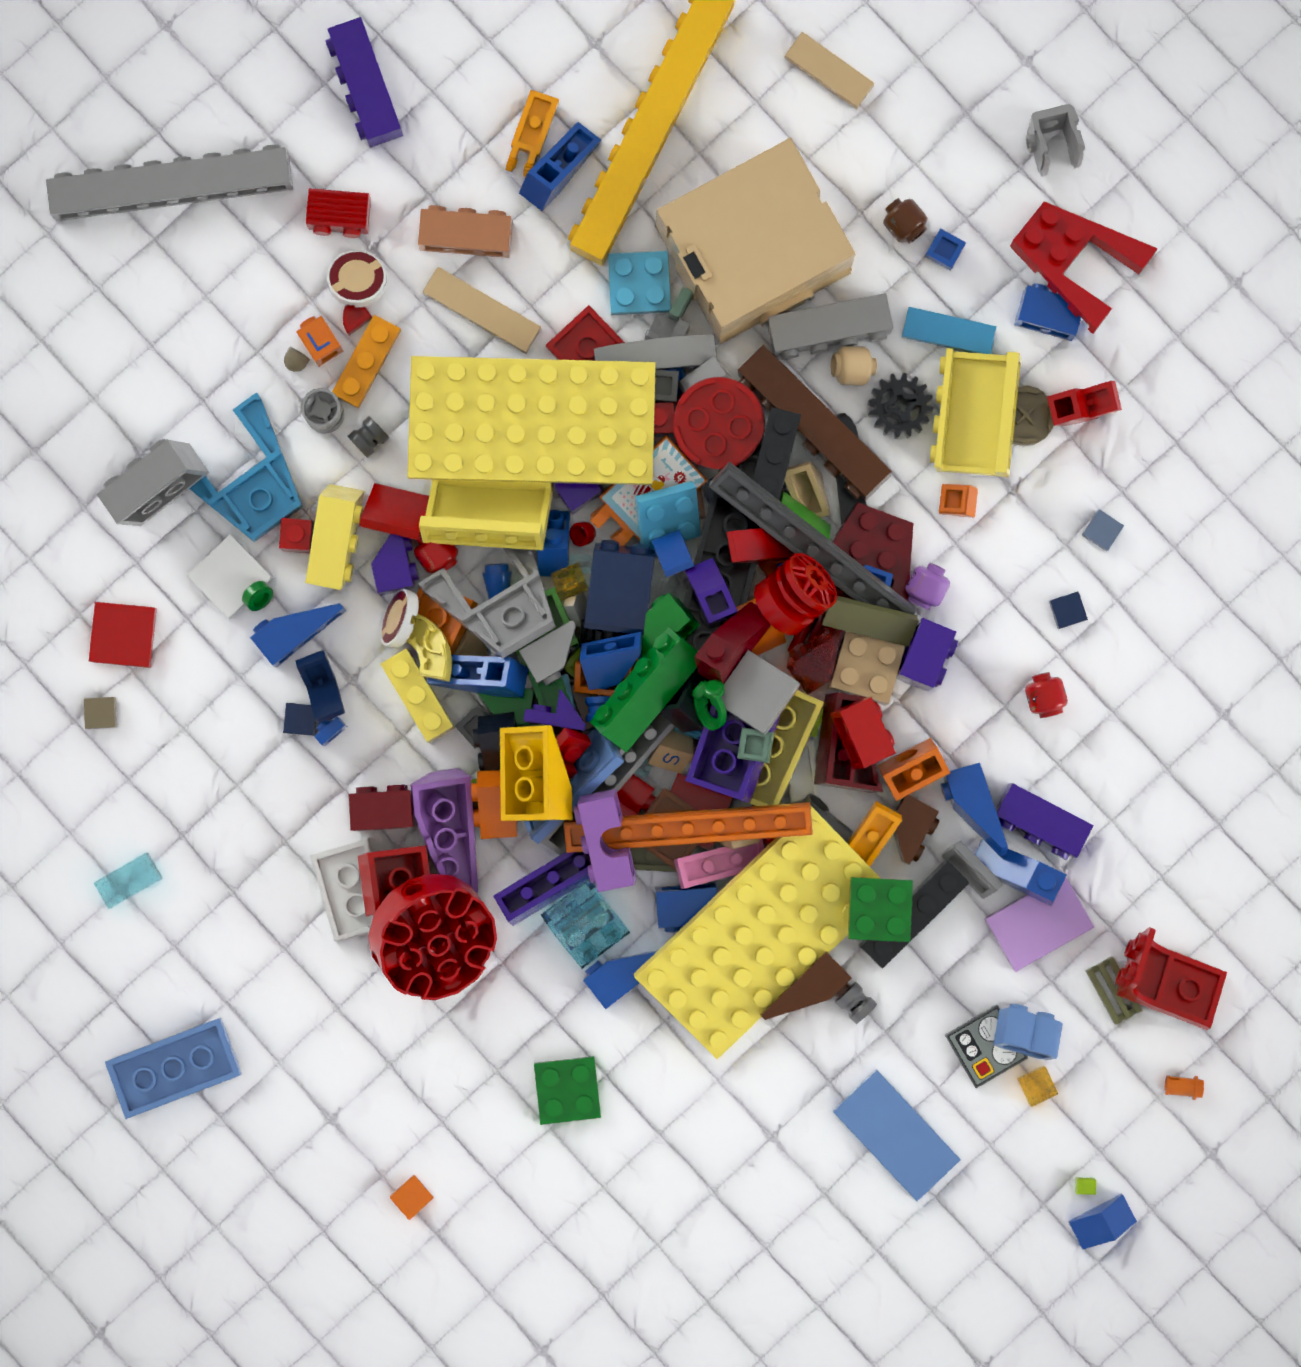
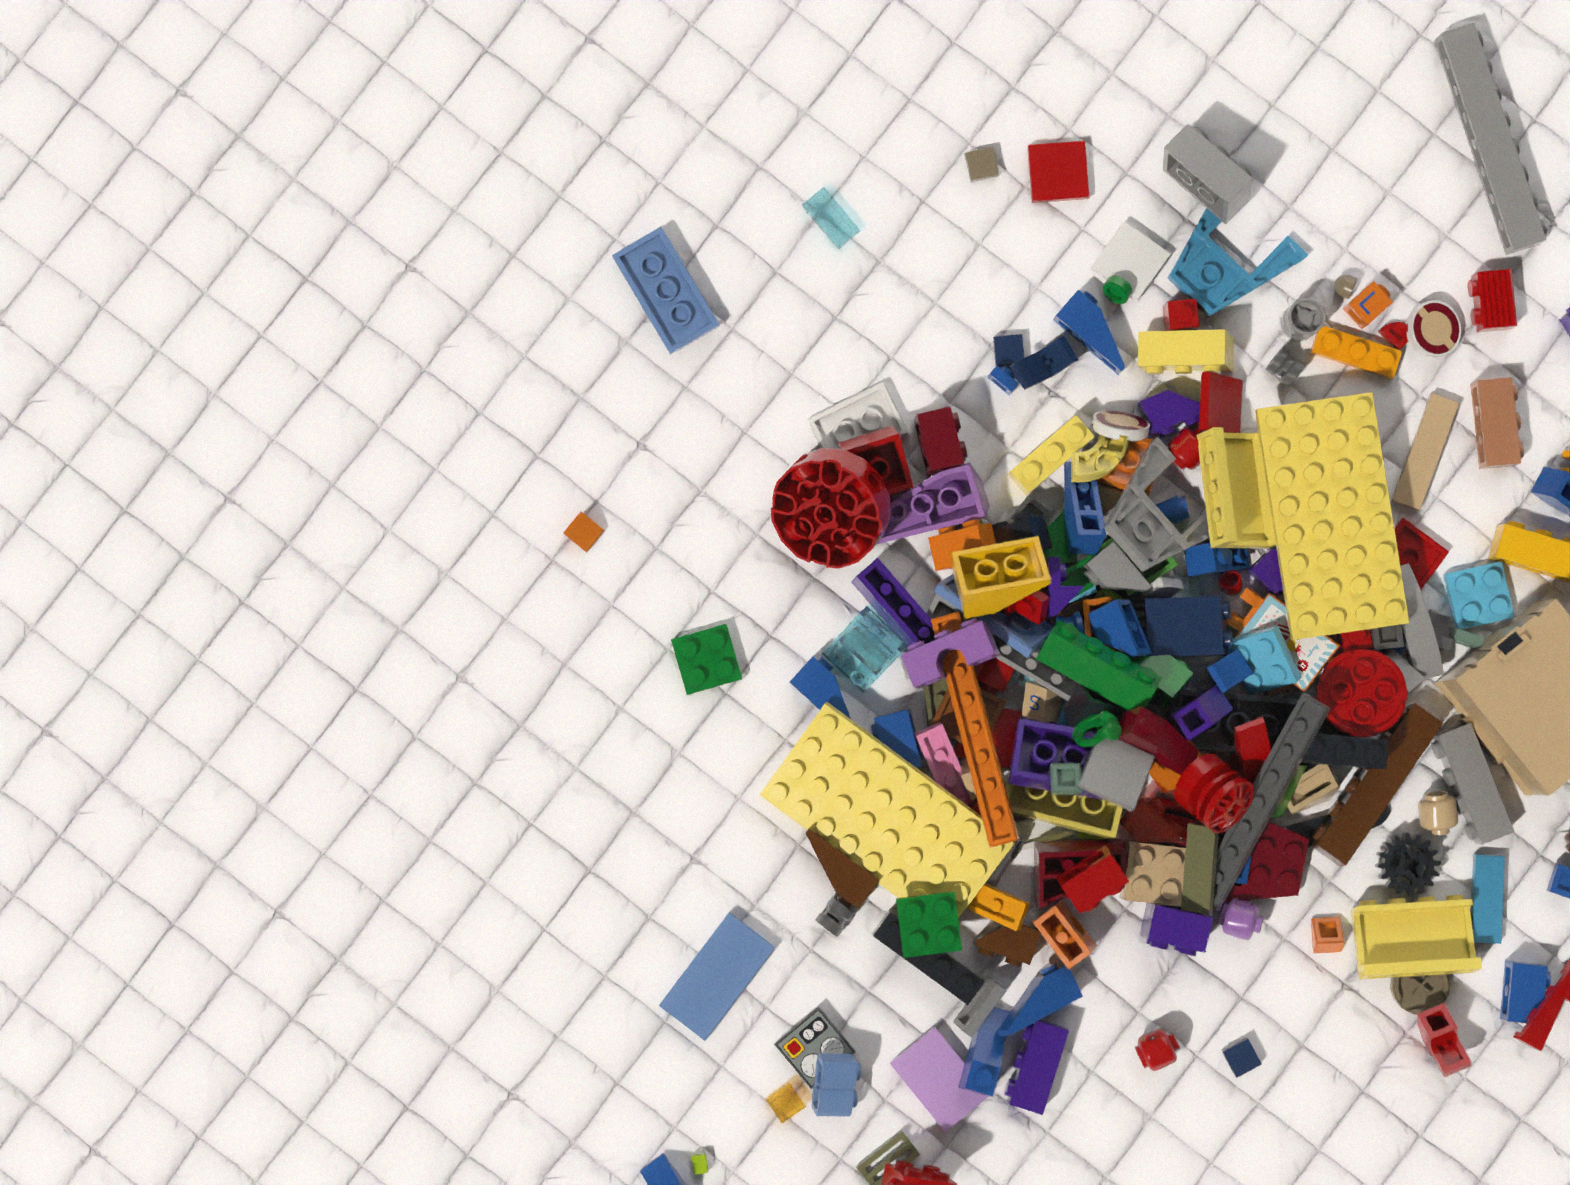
camera: 85 degrees right, 0 degrees up
(569, 581) = (1184, 578): clear yellow plate -> none
(1102, 530) = (1324, 1078): sand blue tile -> none

